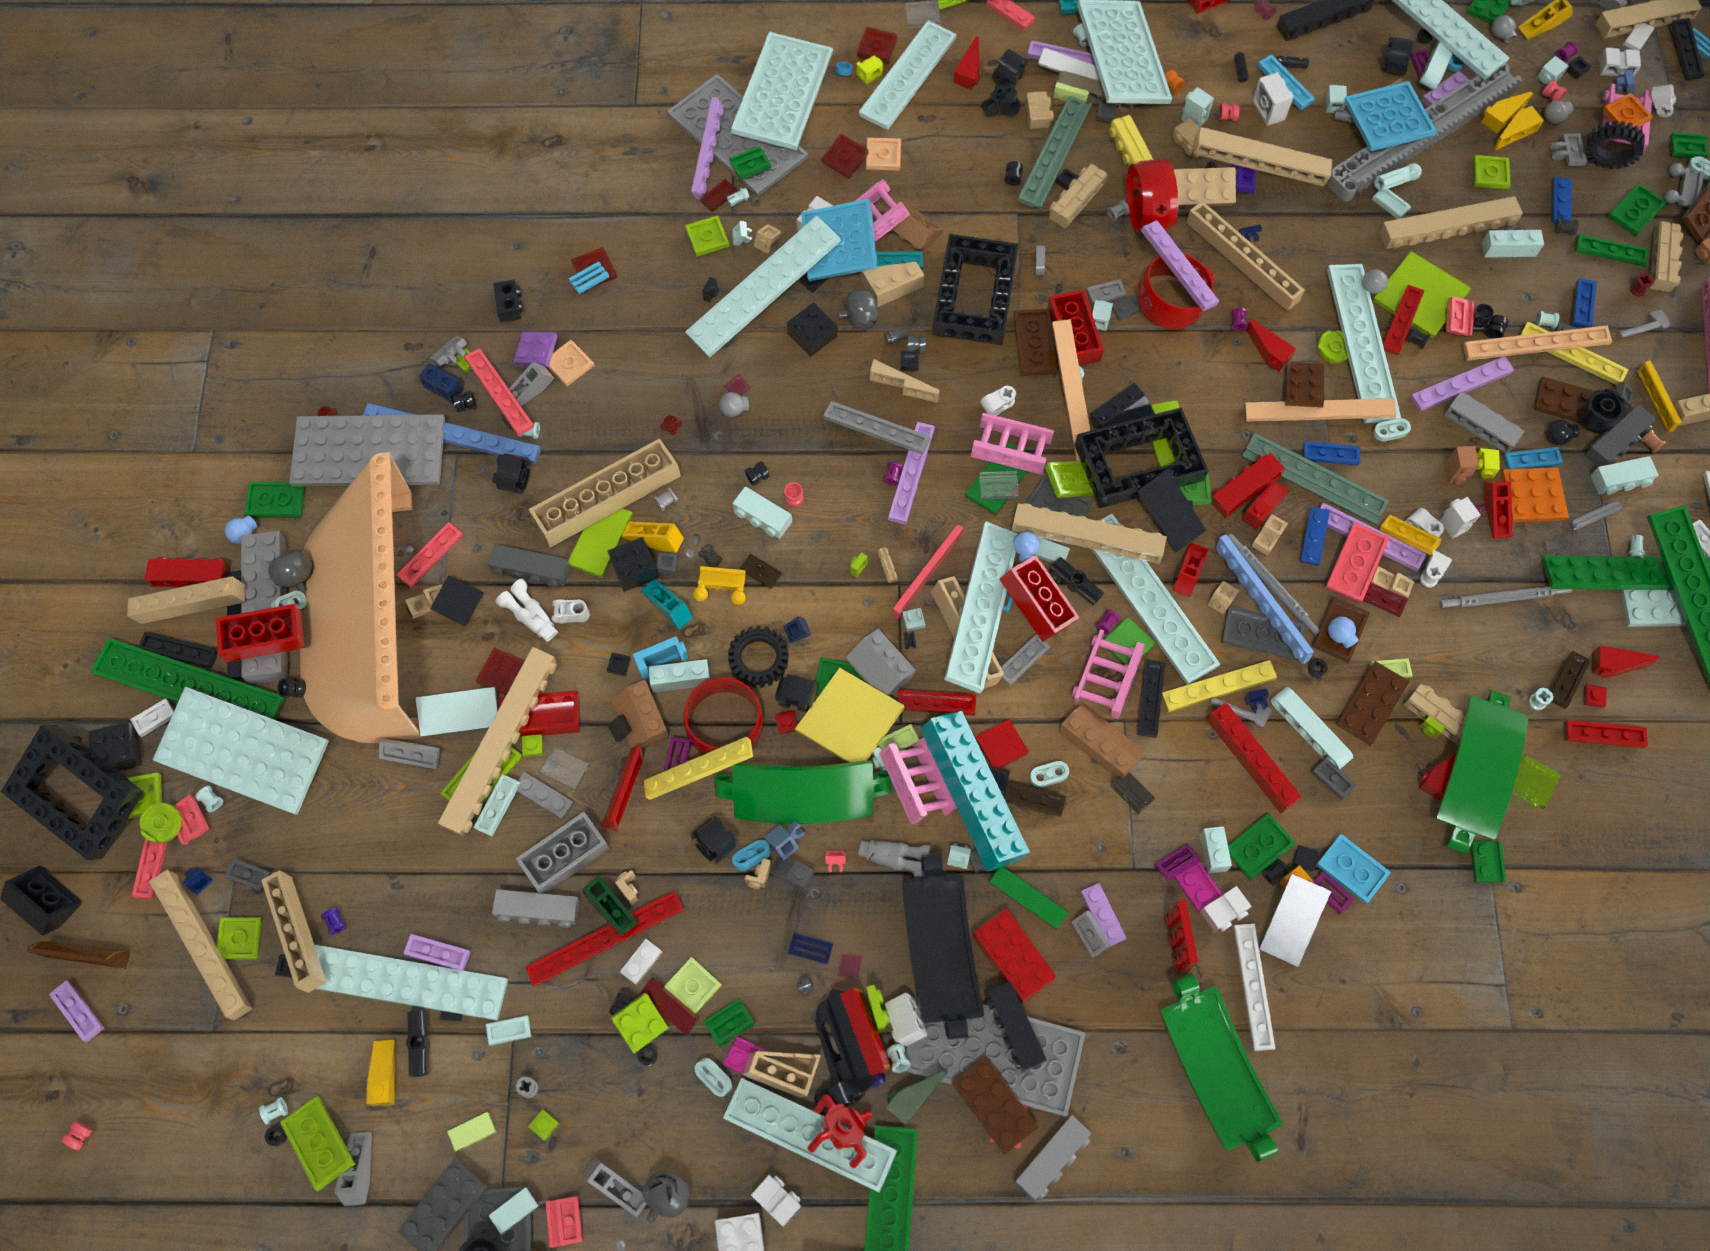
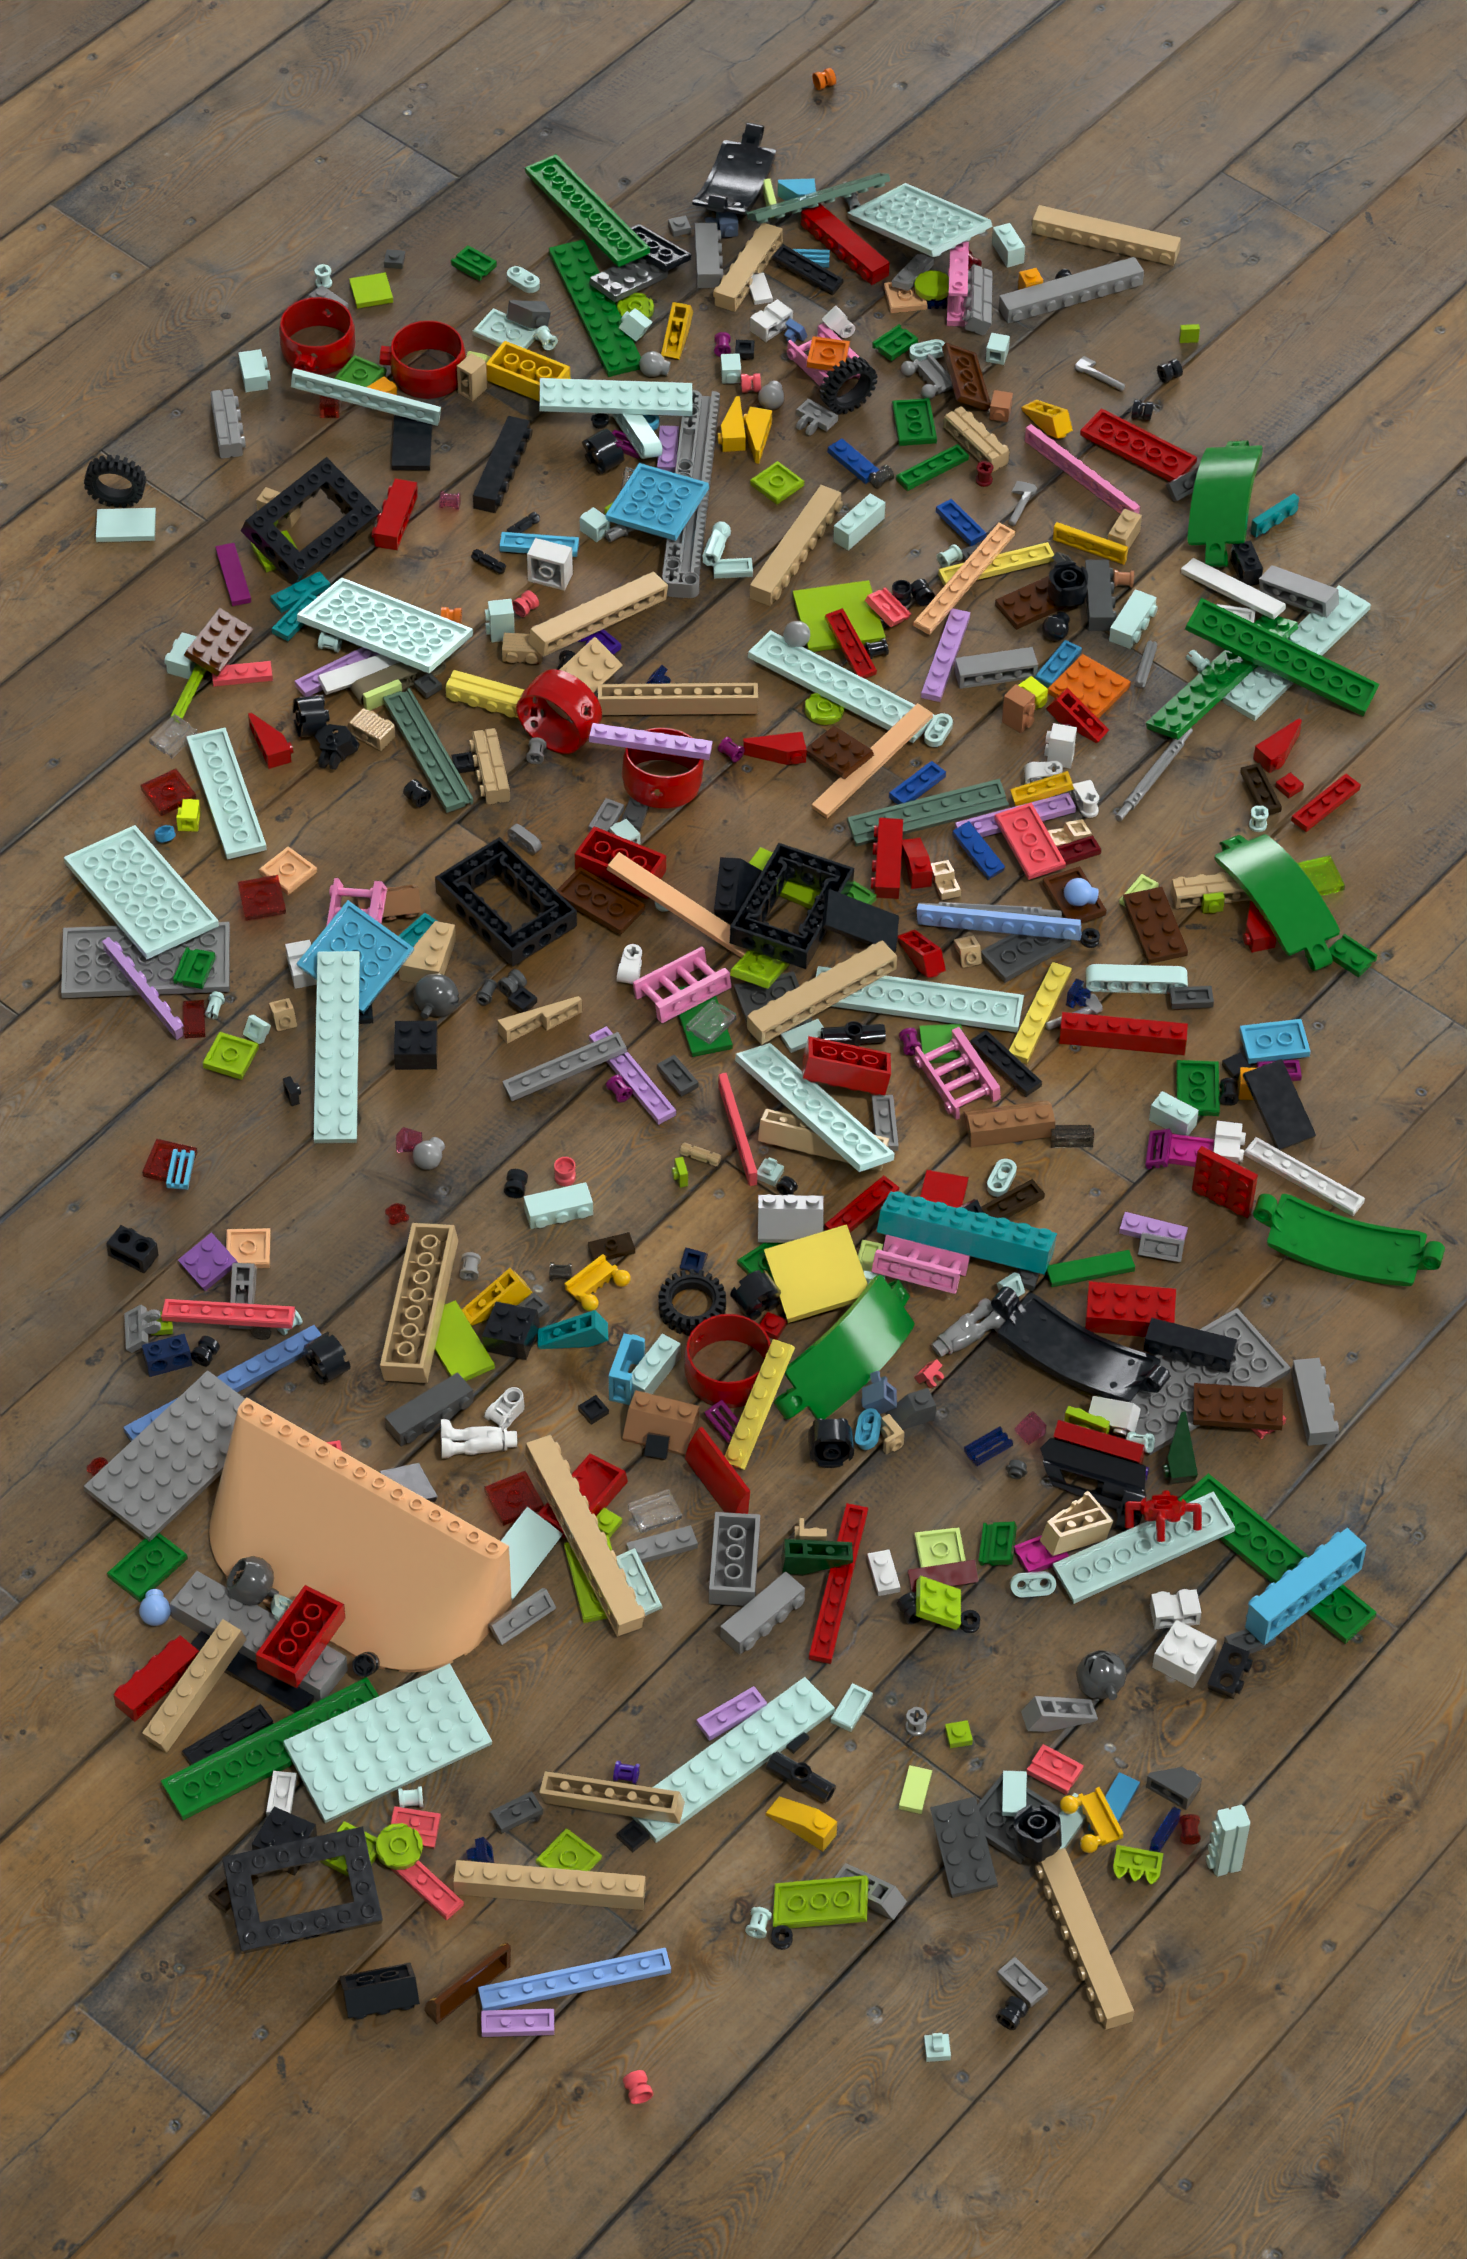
camera: 50 degrees left, 15 degrees down
(138, 1022) = (574, 1980): none -> light blue plate
(937, 500) = (677, 1075): none -> dark grey plate
(1026, 545) = (787, 1043): light blue piece -> none

